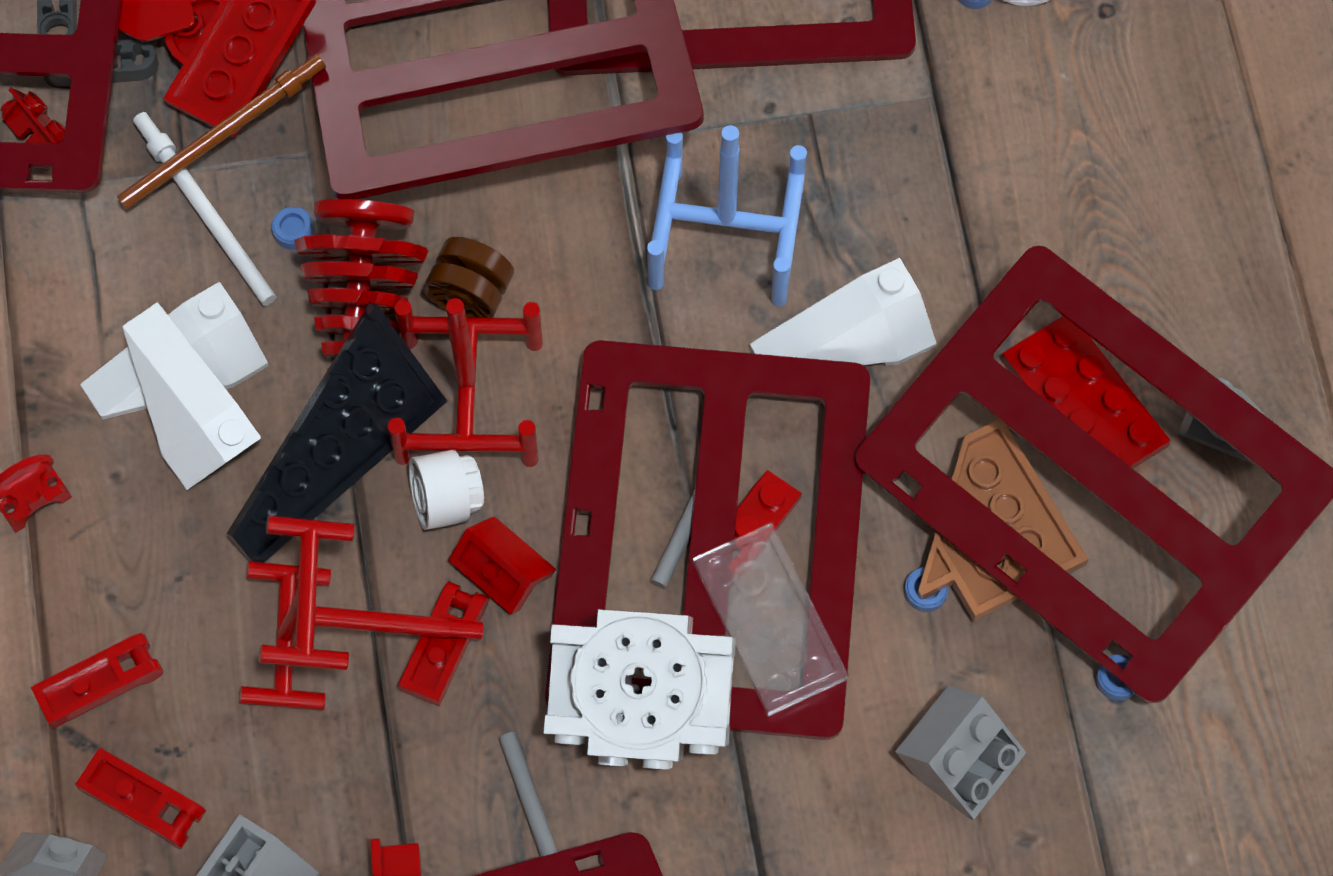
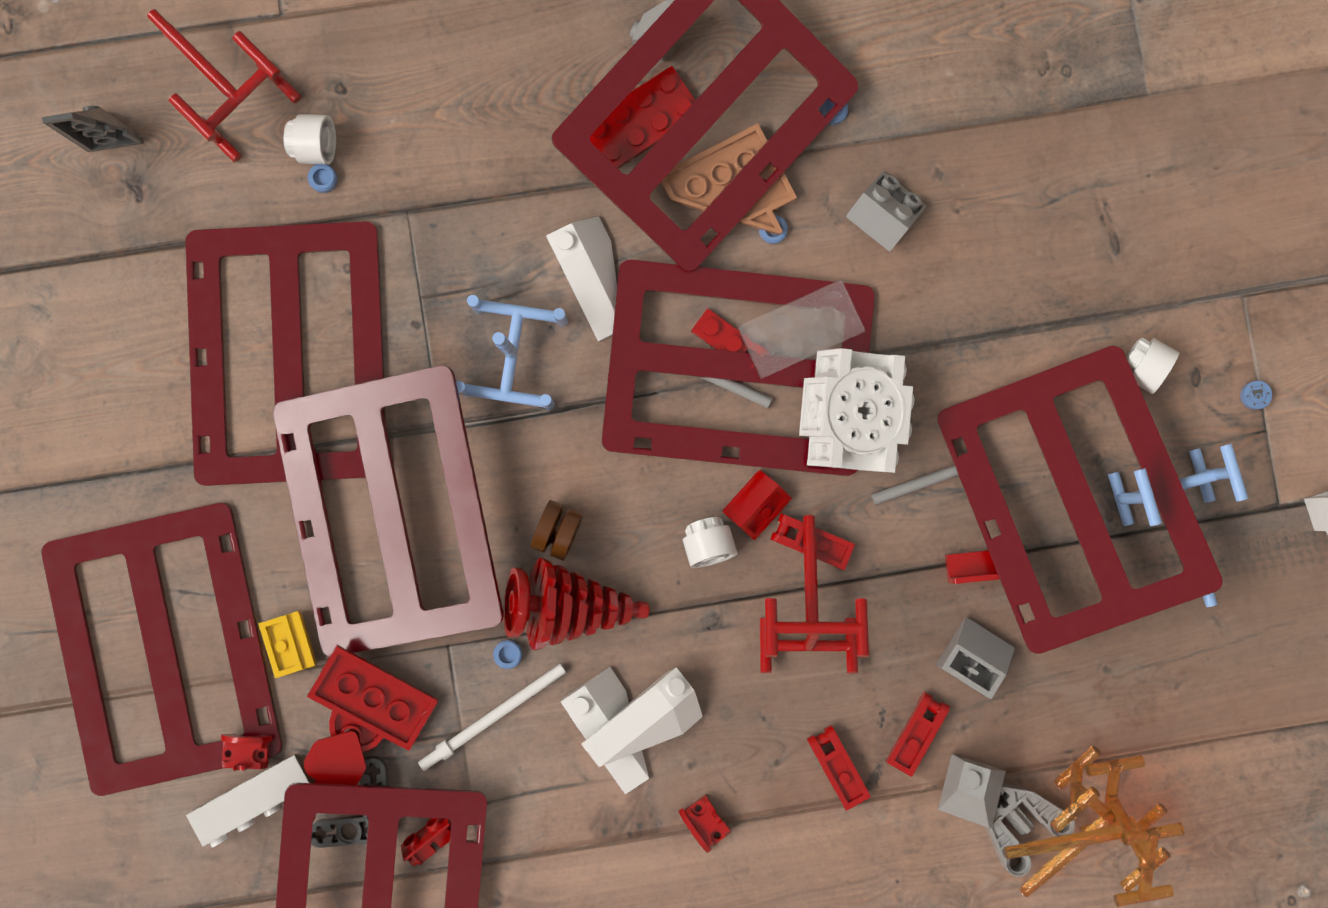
camera: 90 degrees left, 20 degrees up
(286, 85) = (404, 662): dark orange bar -> none
(339, 432) = (658, 604): black wing -> none
(463, 339) = (594, 529): red piece -> none

